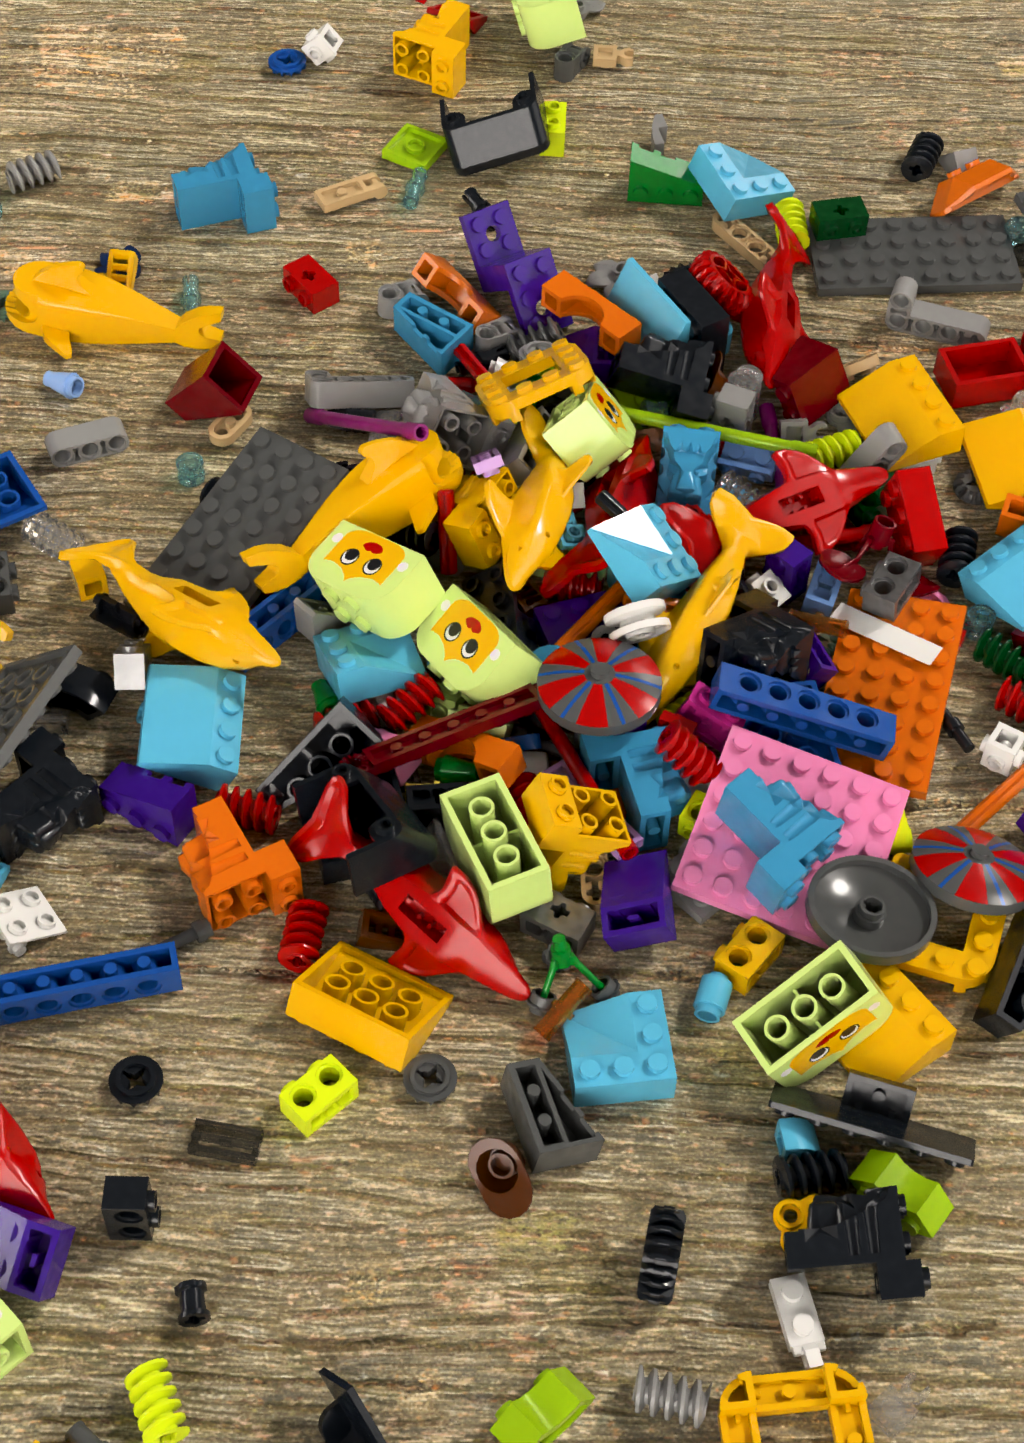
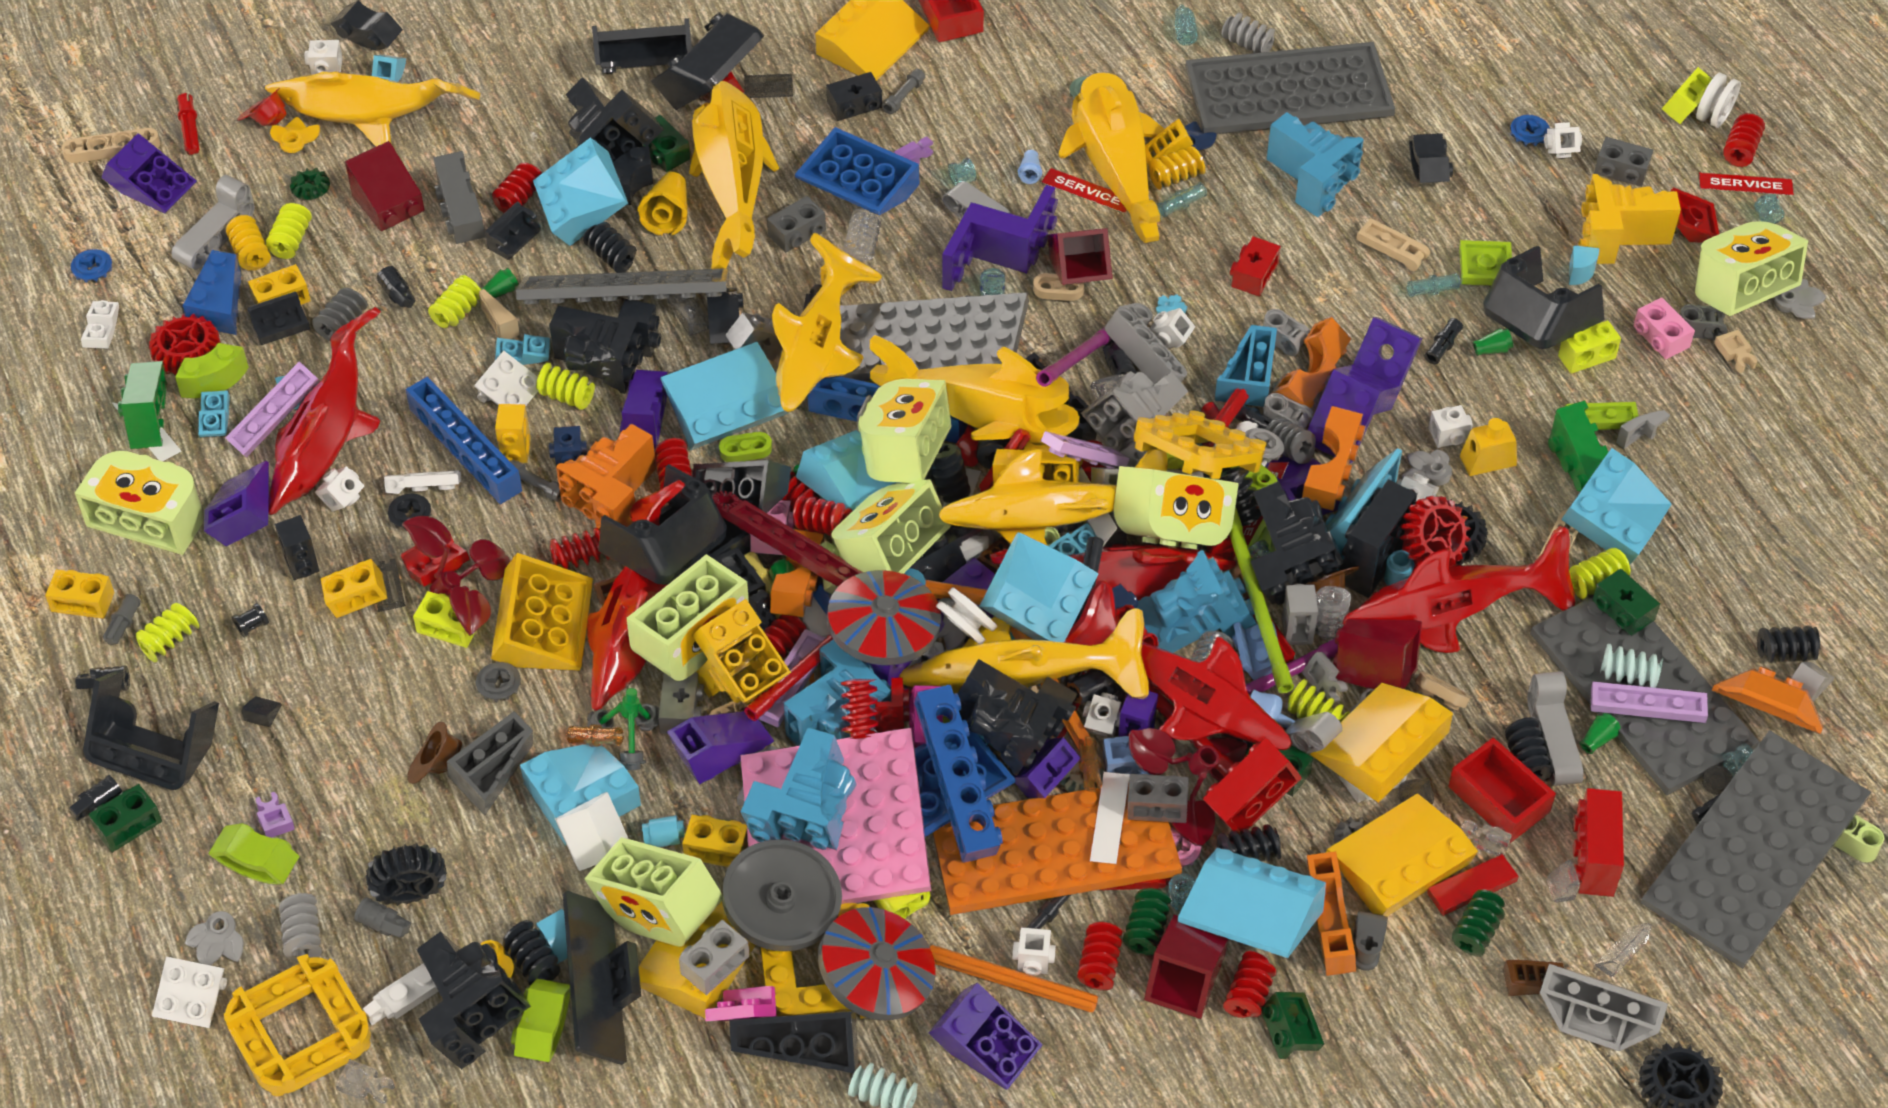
camera: 65 degrees right, 0 degrees up
(30, 433) = (962, 171): none -> clear light blue wheel
(63, 1136) = (339, 488): none -> white brick
(64, 863) = (565, 388): none -> neon yellow piece
(103, 1049) = (421, 481): none -> white hinge
(106, 927) = (513, 432): none -> yellow brick
(114, 178) = (1307, 83): none -> dark grey plate
(118, 361) = (1083, 189): none -> red sticker
(146, 435) = (999, 238): none -> dark purple bracket
(154, 279) = (1176, 165): none -> yellow piece
(157, 891) = (567, 444): none -> dark blue brick
(227, 1077) = (422, 568): none -> red bracket
(229, 1172) = (353, 588): none -> yellow brick
(245, 1043) = (469, 606): none -> dark red plant
(257, 743) = (745, 447): none -> lime plate
(274, 128) = (1430, 158): none -> black brick
(309, 361) = (1174, 302): none -> medium azure plant
(330, 1338) = (261, 711): none -> black slope
(347, 361) = (1172, 327): none -> white brick
(368, 25) = (1623, 161): none -> dark grey brick
(460, 95) = (1582, 264): none -> medium azure brick
(499, 1376) = (273, 817): none -> medium lavender plate
(506, 179) = (1496, 342): none -> green cone
(562, 81) = (1663, 328): none -> bright pink brick
(582, 242) = (1450, 426): none -> white brick
(621, 156) = (1610, 414): none -> lime hinge
(625, 217) = (1489, 448): none -> yellow torso
(691, 1057) = (591, 830): none -> white slope
(693, 1308) = (381, 918): none -> dark grey hinge
(906, 243) = (1630, 666): none -> light aqua piece
(929, 992) = (719, 961): none -> light grey brick
(937, 339) = (1528, 746): none -> black piece
(943, 250) = (1649, 702): none -> lavender plate
(946, 293) = (1600, 732): none -> green cone
(972, 1000) = (744, 1004): none -> dark pink bracket

